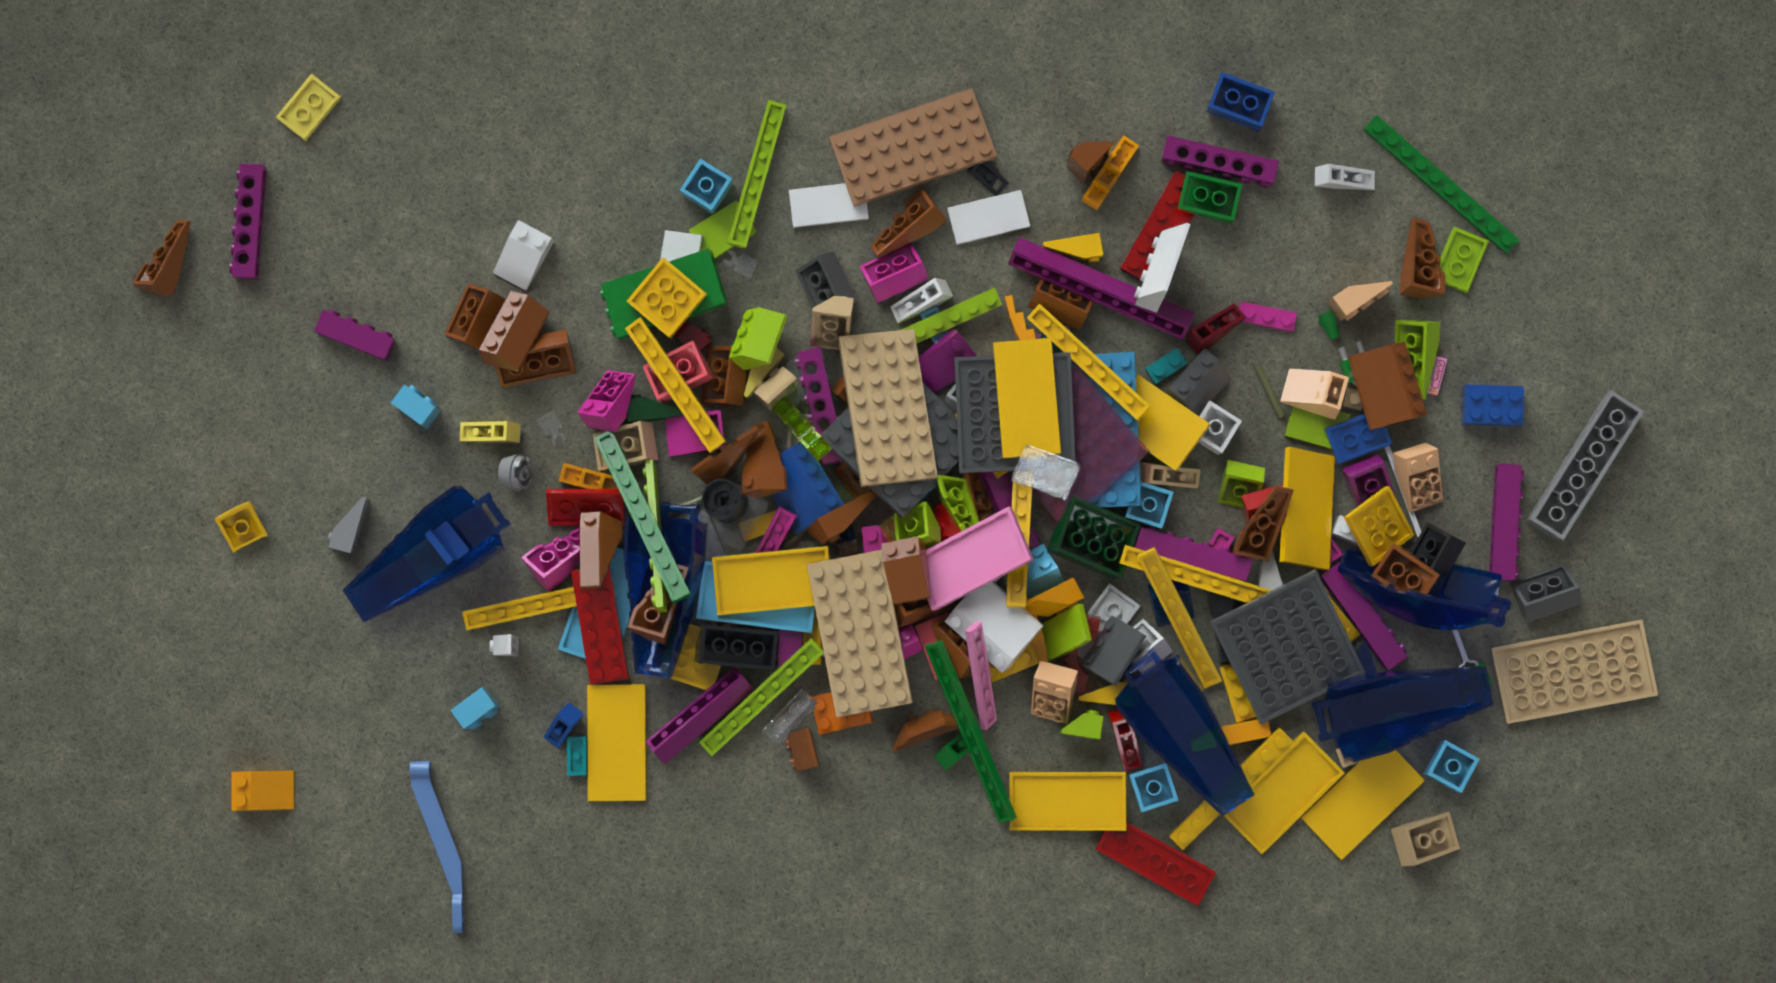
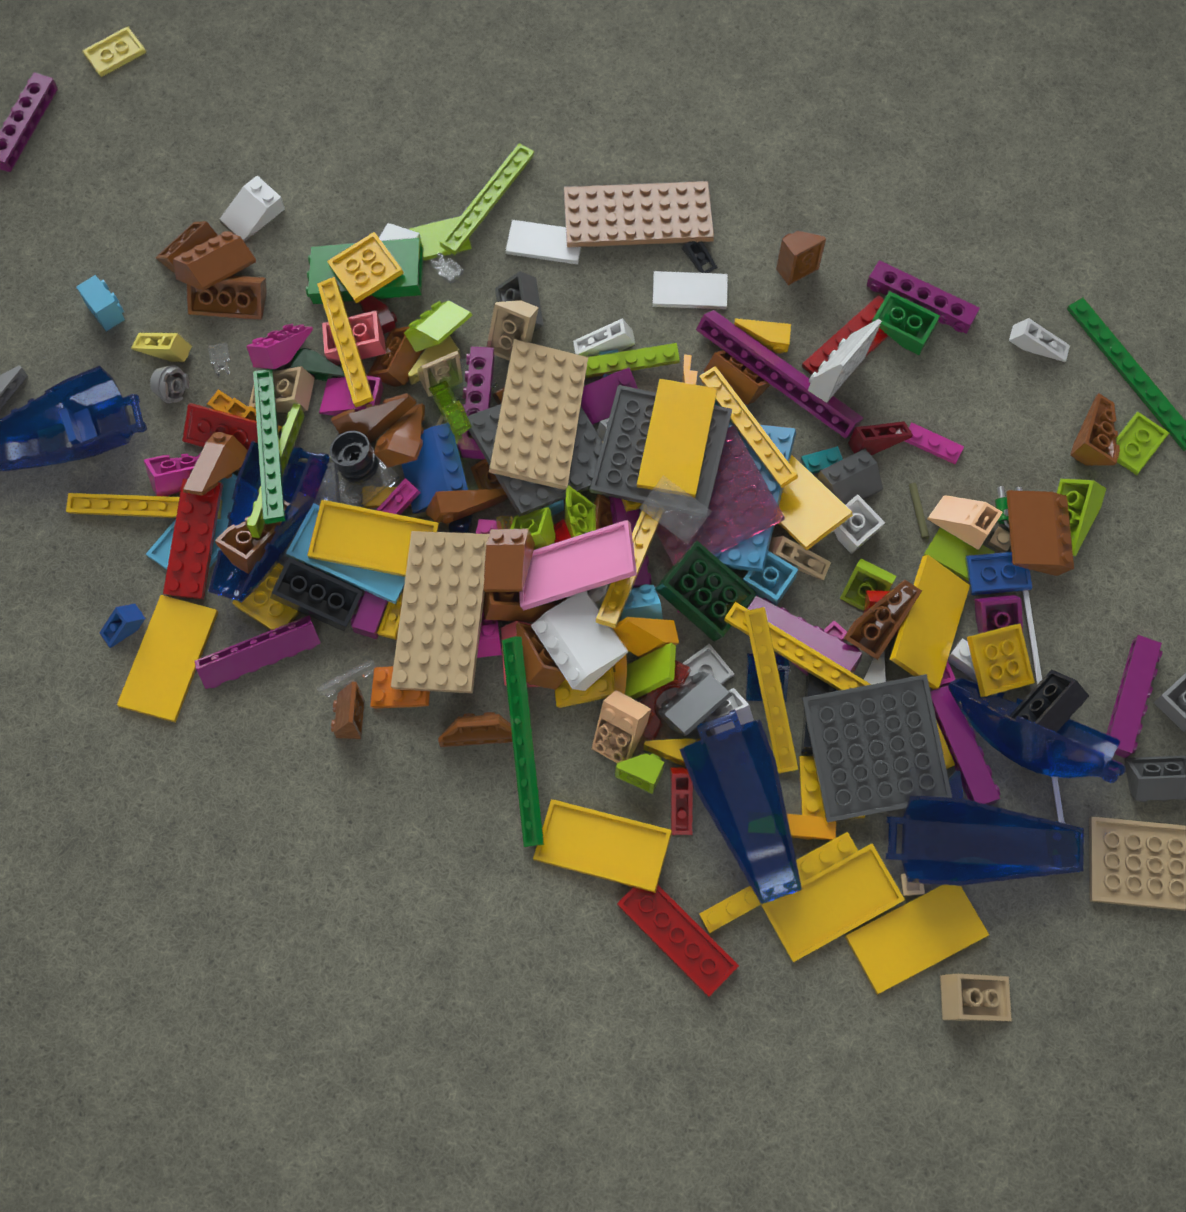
camera: 15 degrees right, 15 degrees down
(355, 335) = (74, 234): magenta brick -> none
(475, 709) = (41, 582): medium azure brick -> none
(504, 645) = (96, 532): white slope -> none
(576, 756) = (123, 658): teal plate -> none
(706, 186) = (438, 195): medium azure brick -> none
(761, 697) = (324, 650): lime plate -> none
(894, 273) = (586, 312): dark pink slope -> none
(916, 221) = (626, 272): dark orange wedge -> none
(951, 752) = (497, 760): green slope -> none
(981, 675) = (550, 685): bright pink tile -> none
(1110, 172) = (815, 282): light orange slope -> none
(1153, 787) = (696, 856): medium azure brick -> none
(1240, 101) = (955, 251): blue brick -> none
(1329, 323) = (993, 463): green cone -> none
(1352, 298) = (1028, 444): light nougat slope -> none
(1405, 571) = (1020, 702): dark orange slope -> none
(1419, 476) = (1052, 626): light nougat slope -> none
(1437, 375) = (1090, 540): bright pink tile -> none
(1451, 766) = (1022, 926): medium azure brick -> none
(1492, 405) = (1142, 580): blue brick -> none

